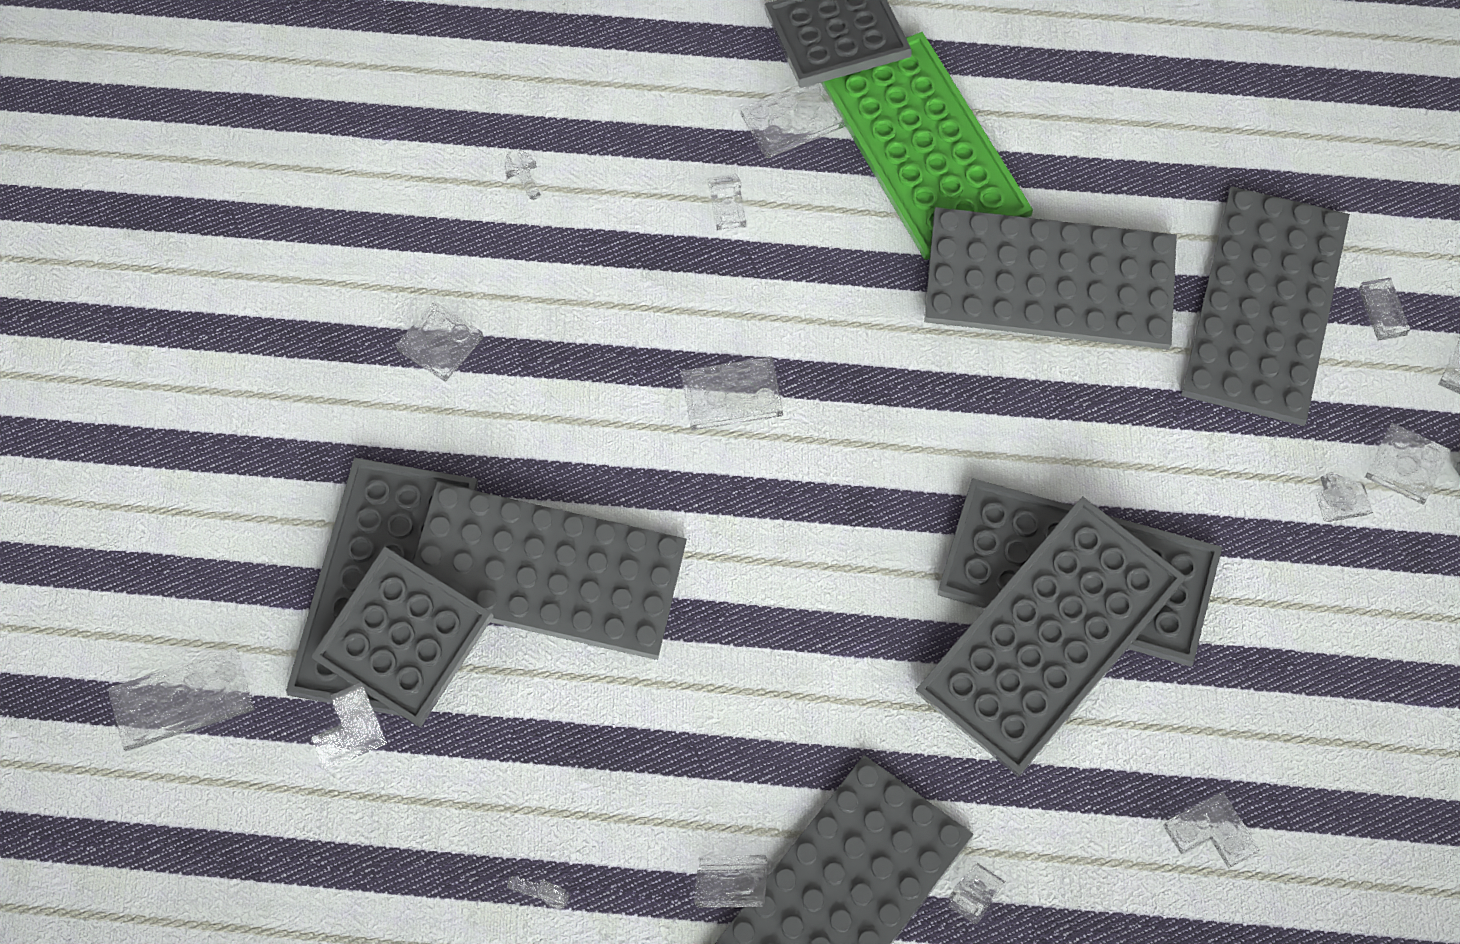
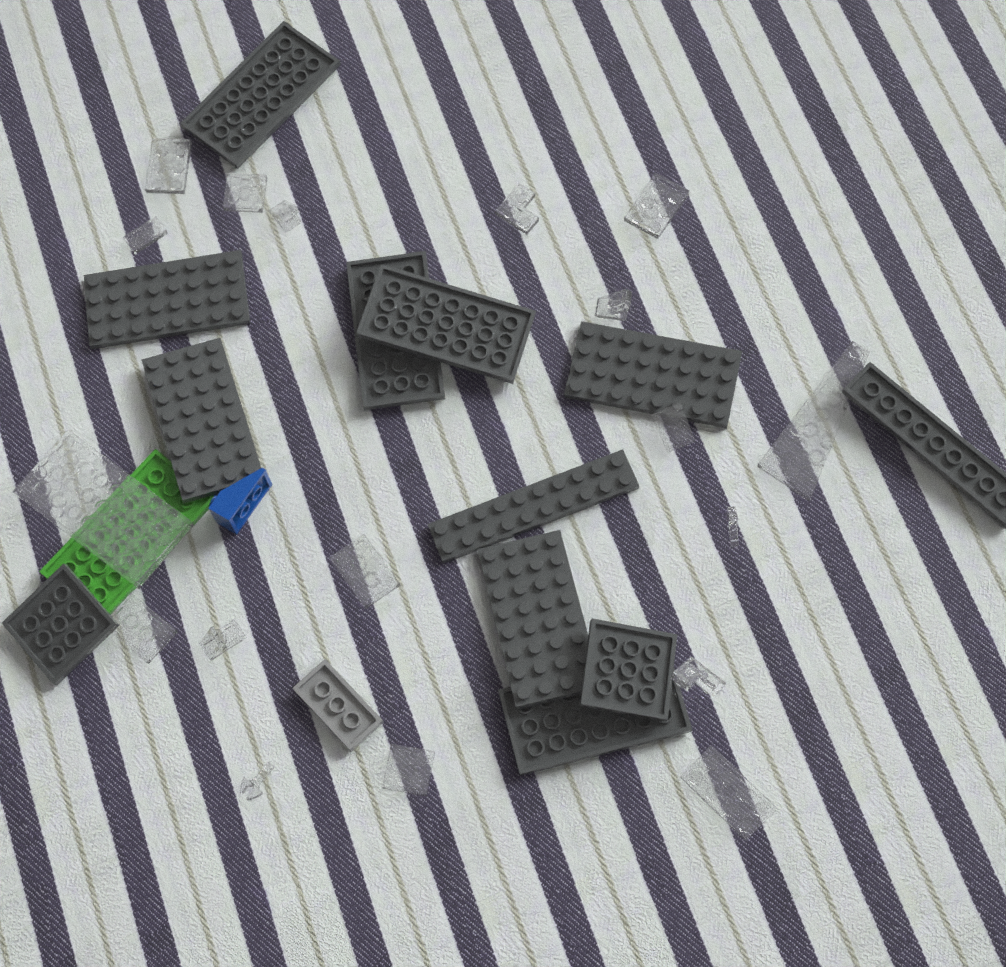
camera: 110 degrees left, 5 degrees up
(566, 292) = (338, 705): none -> light grey plate
(713, 646) = (533, 506): none -> dark grey plate
(896, 269) = (238, 501): none -> blue slope
(972, 122) = (103, 508): none -> clear plate

